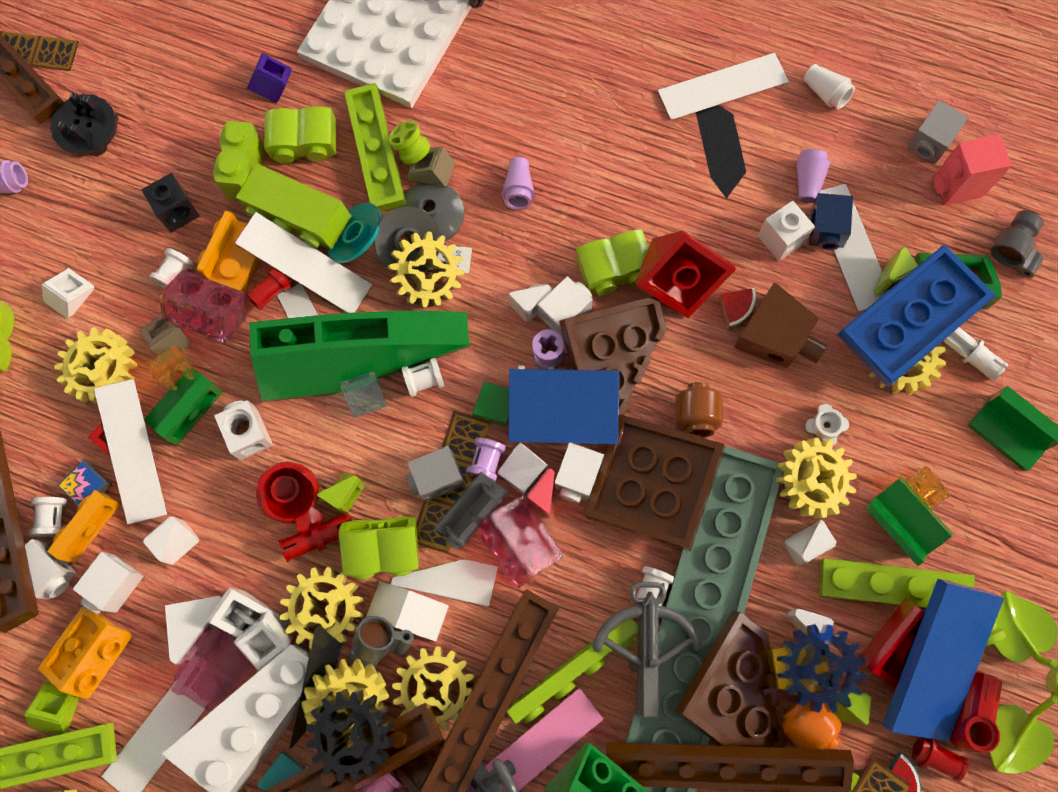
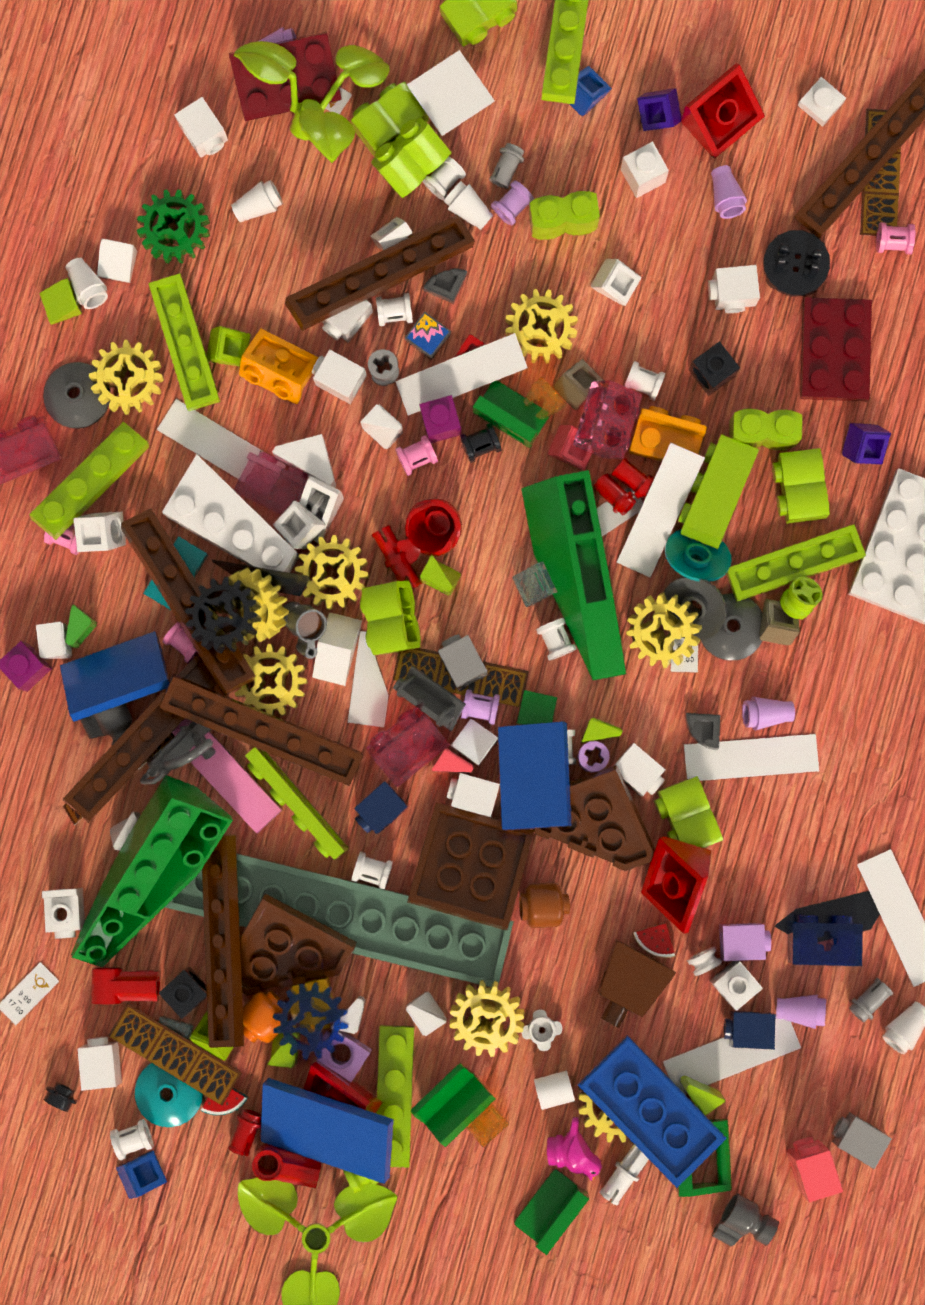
camera: 90 degrees right, 10 degrees up
(34, 462) = (446, 284): none -> dark grey tile
(77, 36) = (904, 244): none -> bright pink bush
(88, 521) = (376, 337): light orange plate -> none
(95, 178) = (734, 288): none -> white brick
(95, 533) = (379, 358): none -> light grey bush
(173, 476) = (440, 419): none -> magenta brick
(174, 98) = (836, 349): none -> dark red plate
(206, 438) = (480, 443): none -> black bush
(208, 506) = (416, 455): none -> bright pink bush
(228, 354) = (563, 448): none -> coral slope
(253, 440) = (486, 490): white brick -> none
(283, 306) = (614, 494): none -> red pin
(520, 341) = (600, 730): none -> lime slope
(526, 300) = (644, 735): white slope -> none
(529, 244) = (704, 729): none -> dark grey tile
(560, 205) = (753, 757): none -> white sticker
(586, 575) = (379, 809): none -> dark blue brick
(647, 661) = (309, 867): dark grey piece -> none
(743, 222) = (744, 941): none -> lavender brick
(753, 133) = (843, 951): none -> clear blue brick
(761, 260) = (704, 961): none -> white bush
(802, 115) = (870, 1000): none -> light grey pin
(866, 628) = (349, 1068): none -> lavender brick
(890, 416) = (554, 1090): none -> white beam
(955, 402) = (573, 1152): none -> dark pink animal

